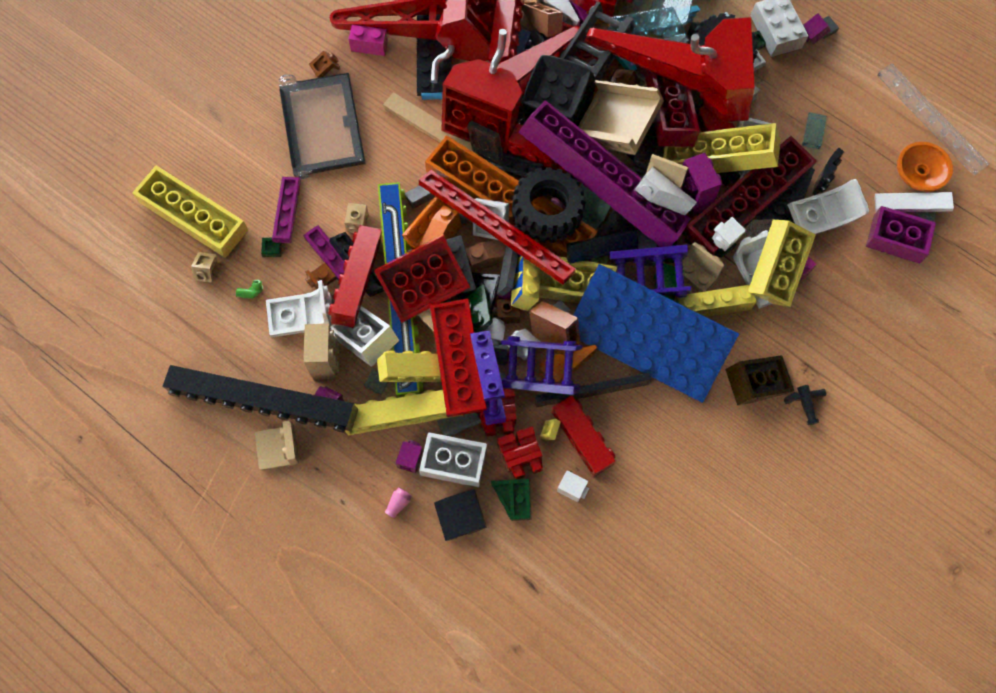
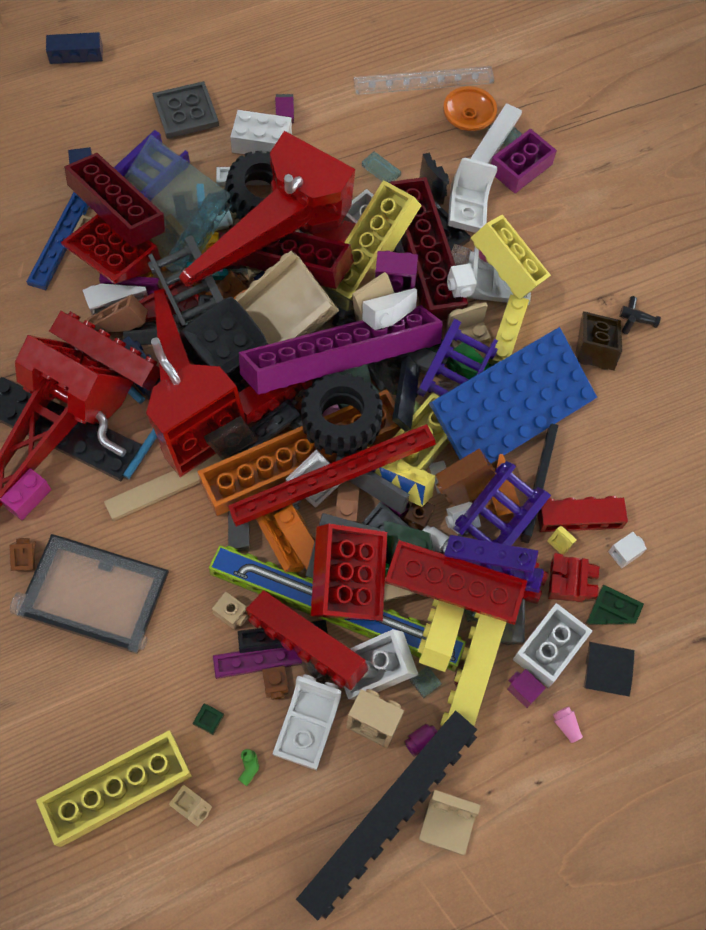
camera: 65 degrees left, 5 degrees down
(286, 210) = (175, 680): magenta tile -> none

